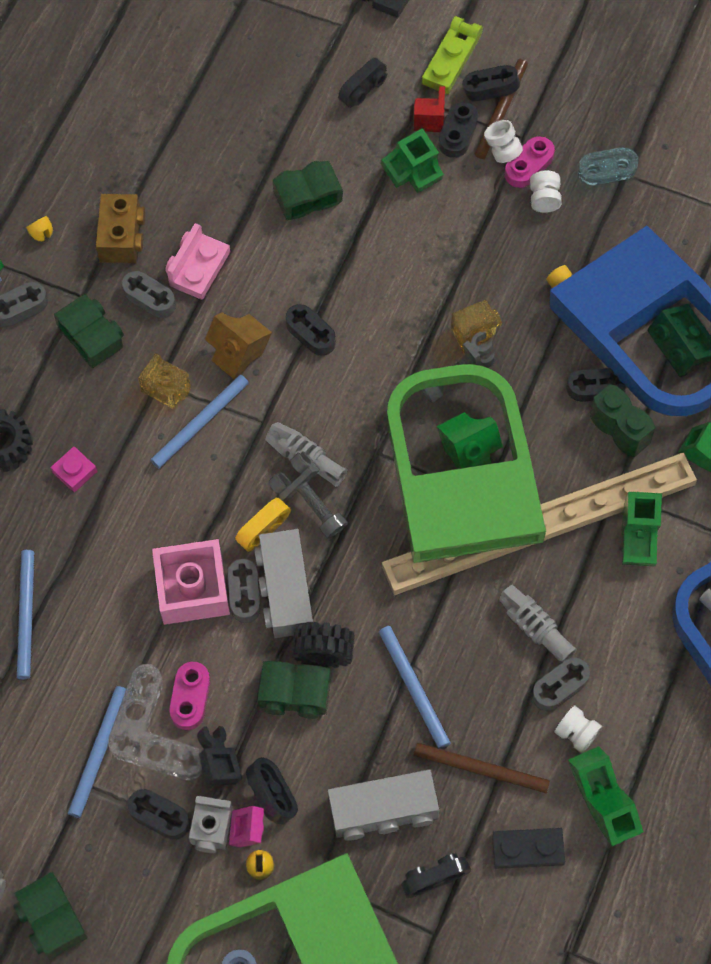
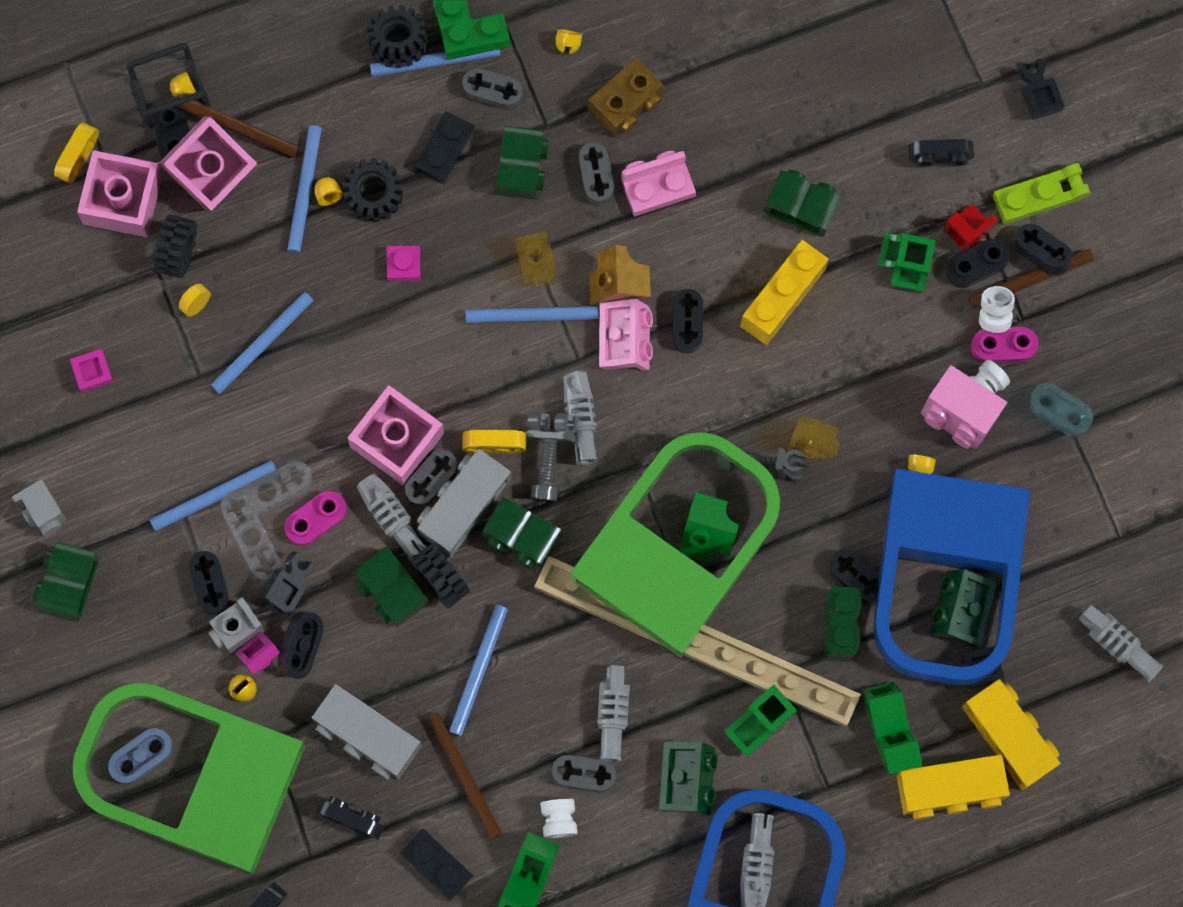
camera: 40 degrees right, 10 degrees up
(24, 370) = (444, 147): none -> black plate
(242, 641) = (390, 514): none -> light grey hinge
(278, 375) = (625, 335): none -> bright pink bracket
(347, 566) = (521, 533): none -> dark green brick
(356, 252) = (784, 292): none -> yellow brick
(551, 214) = (962, 408): none -> bright pink brick
(632, 616) = (688, 777): none -> dark green bracket

